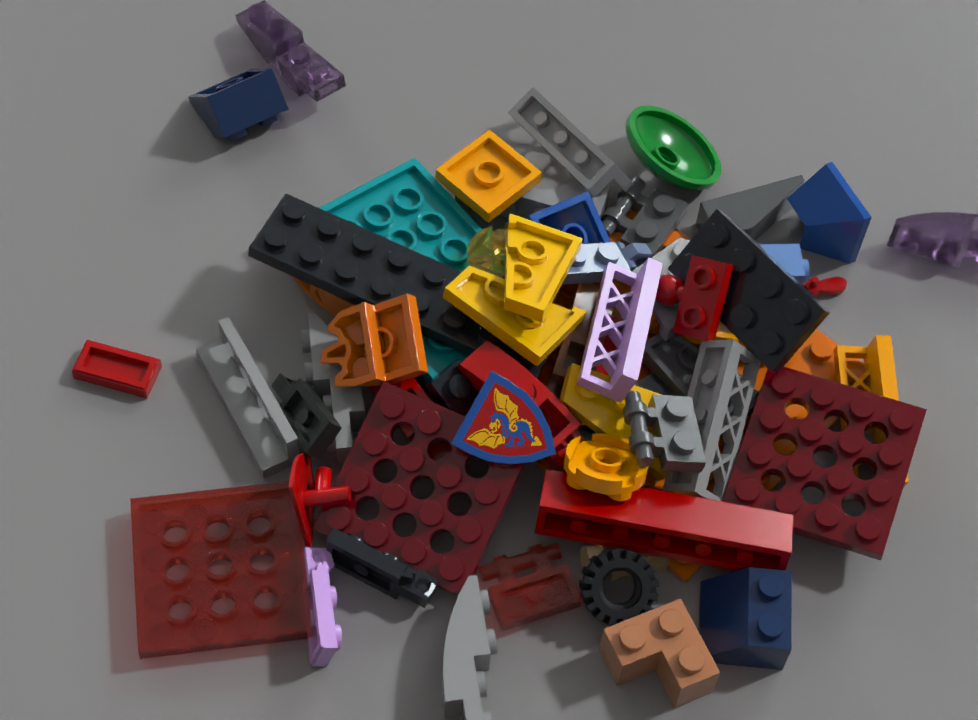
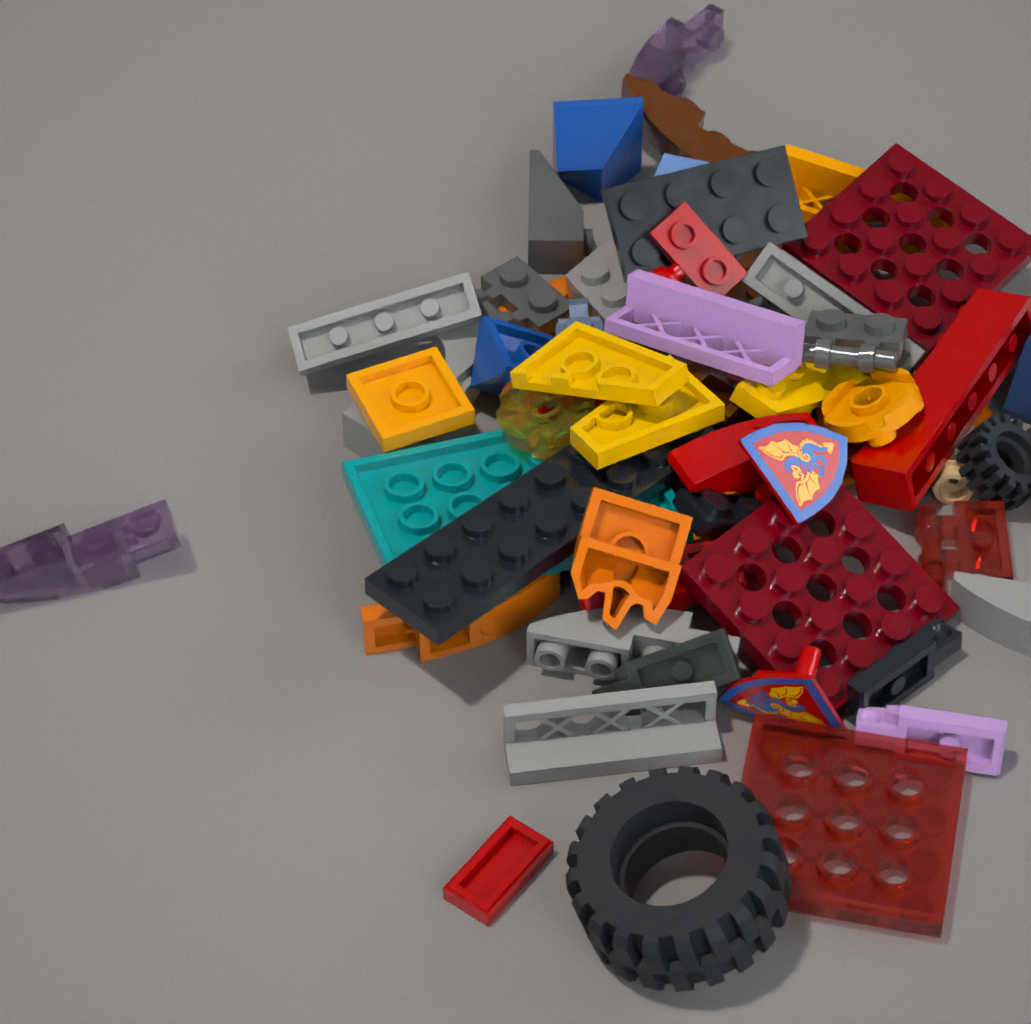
camera: 65 degrees left, 10 degrees down
(115, 498) = (693, 938): none -> black tyre
(240, 103) = (128, 631): dark blue slope -> none
(672, 148) = (435, 247): green dish -> none
(872, 268) = (677, 124): none -> reddish brown slope

